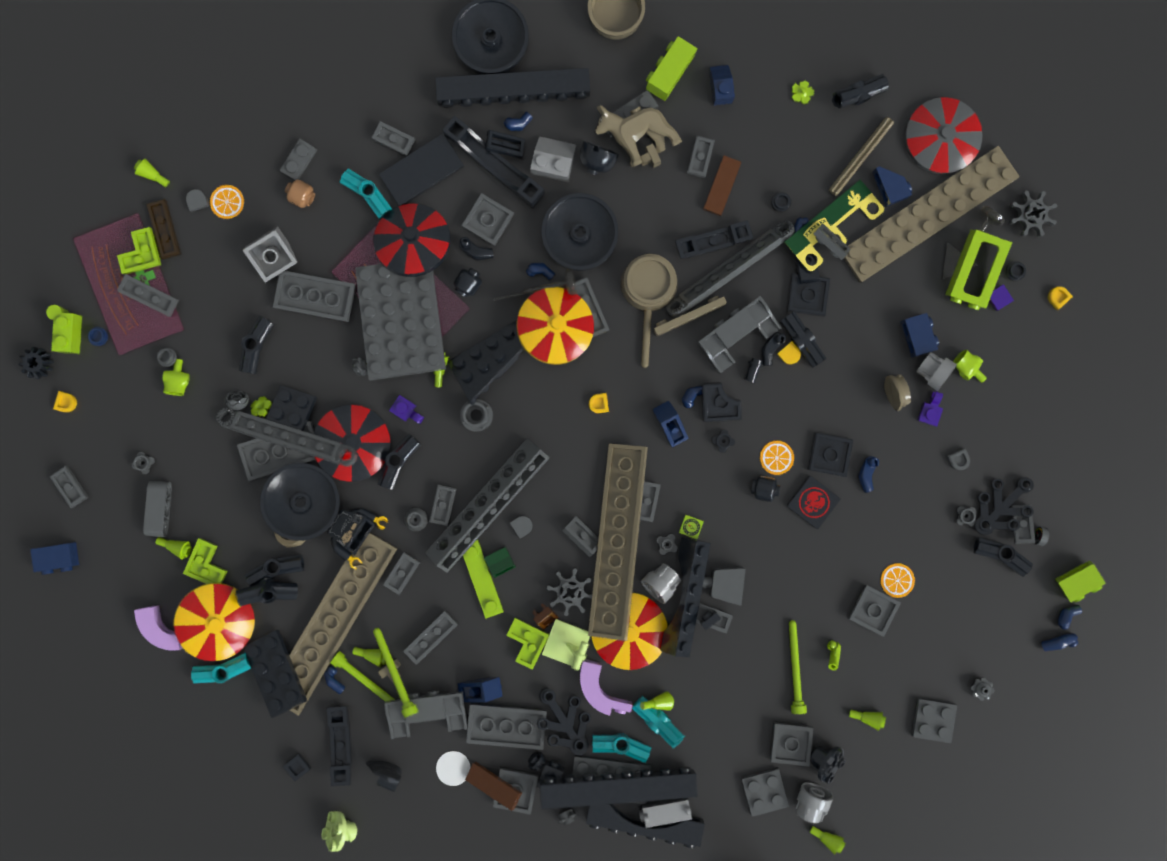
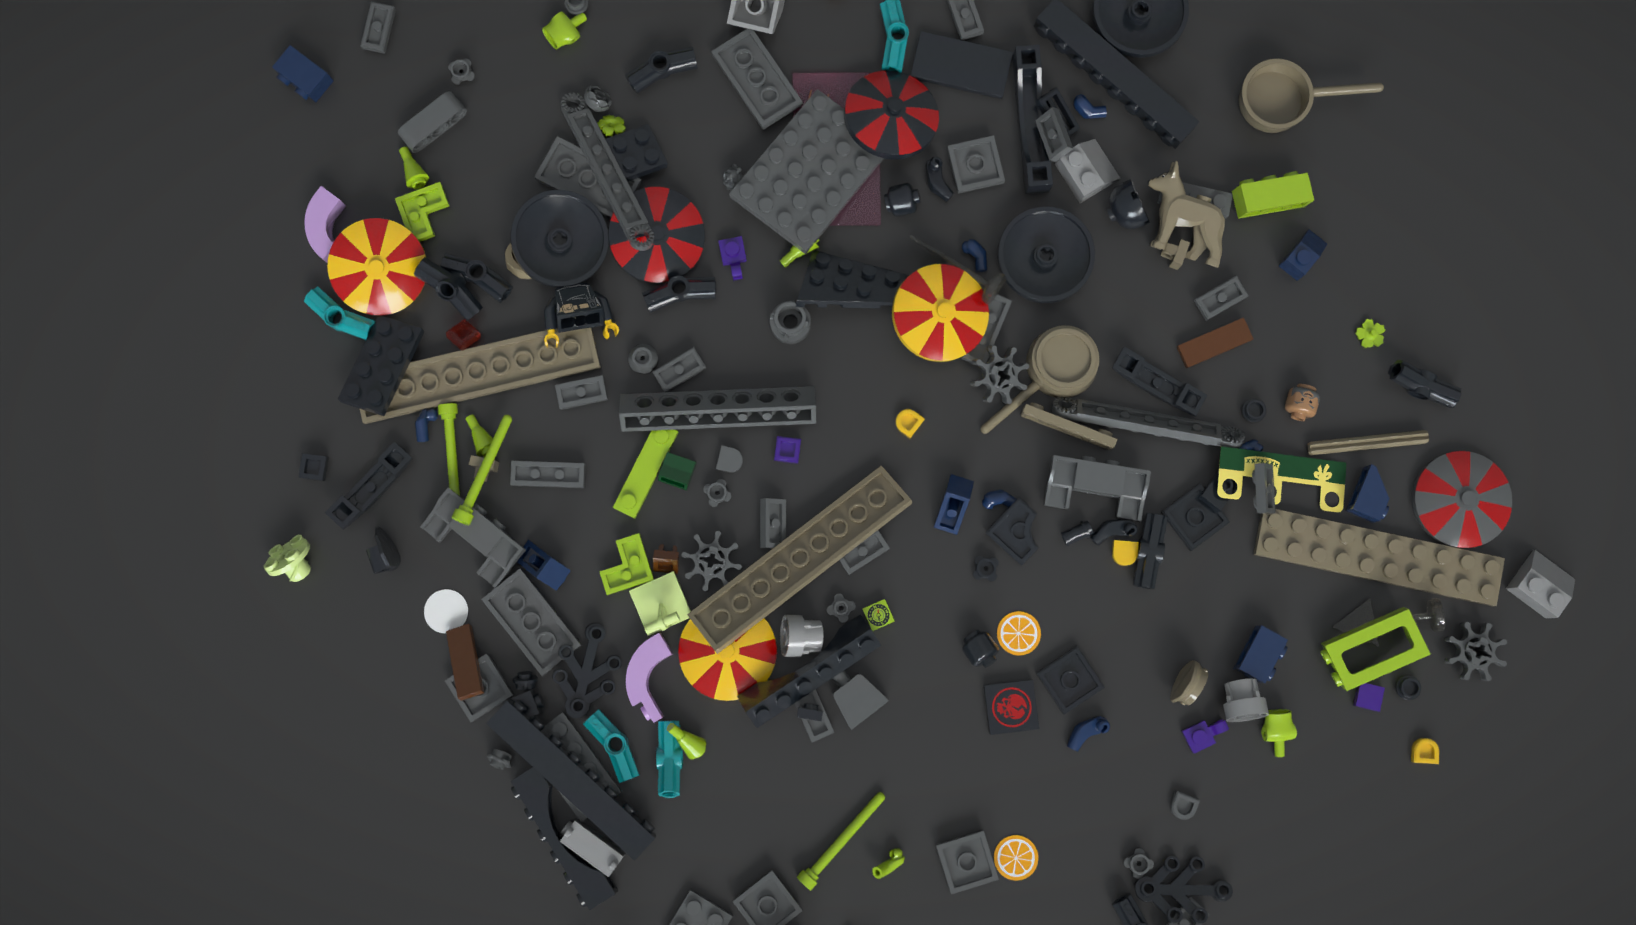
camera: 50 degrees right, 5 degrees down
(302, 609) = (463, 335): none -> clear red tile
(515, 159) = (1054, 134): none -> dark grey plate
(529, 552) = (718, 486): none -> dark grey plate
(548, 487) = (787, 449): none -> dark purple tile
(622, 318) = (991, 378): none -> dark grey gear
(803, 170) = (1302, 402): none -> medium nougat head
(1033, 139) = (1542, 586): none -> light grey slope

